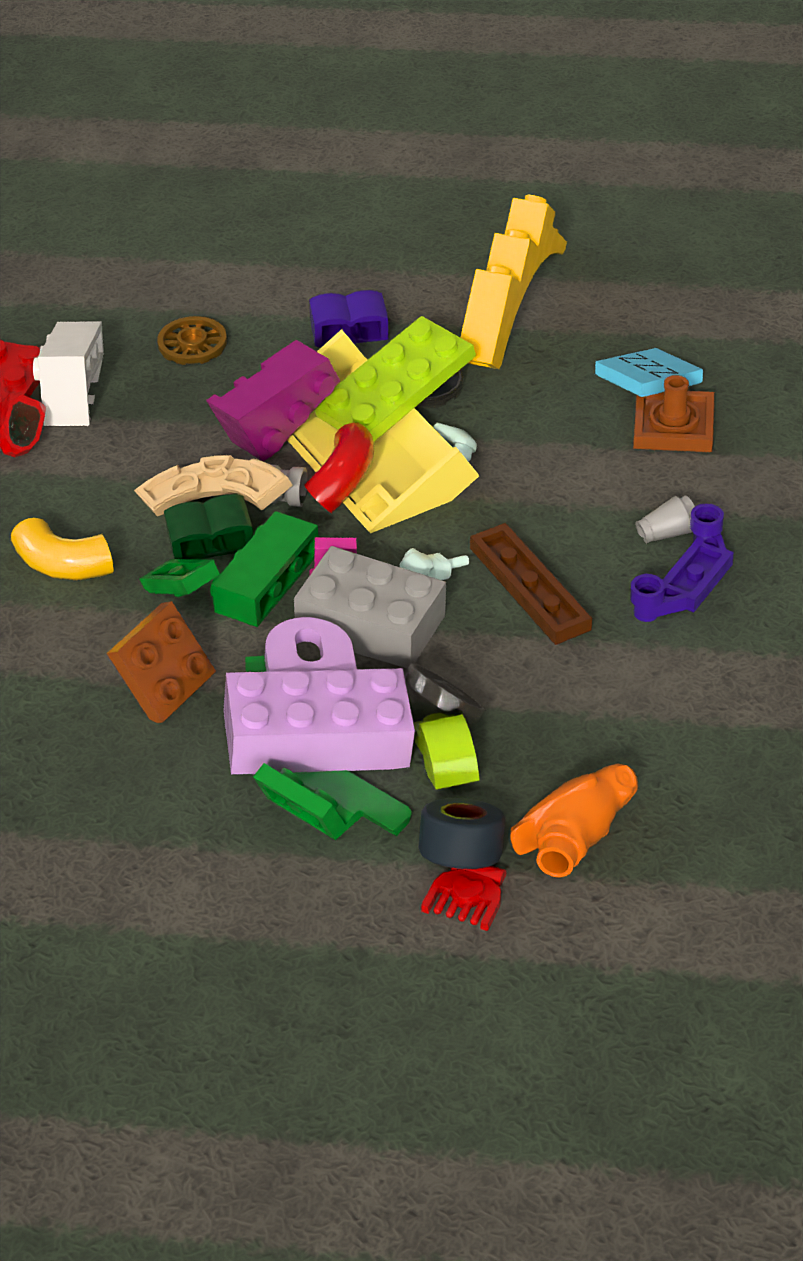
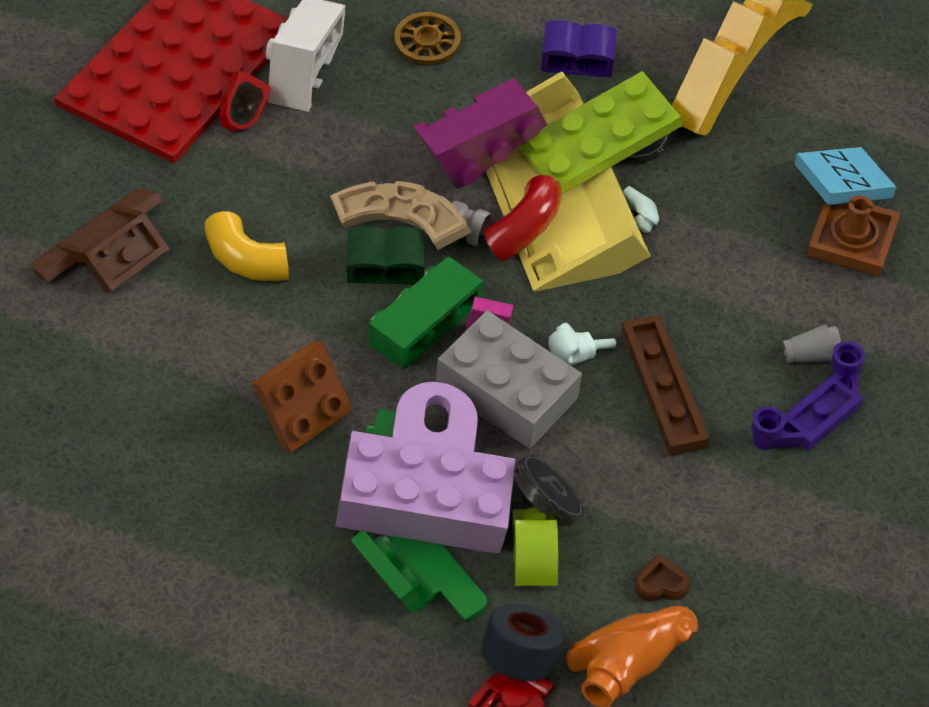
camera: 10 degrees right, 10 degrees up
(179, 576) = (344, 304): green plate -> none
(584, 754) = (661, 579): none -> reddish brown tile

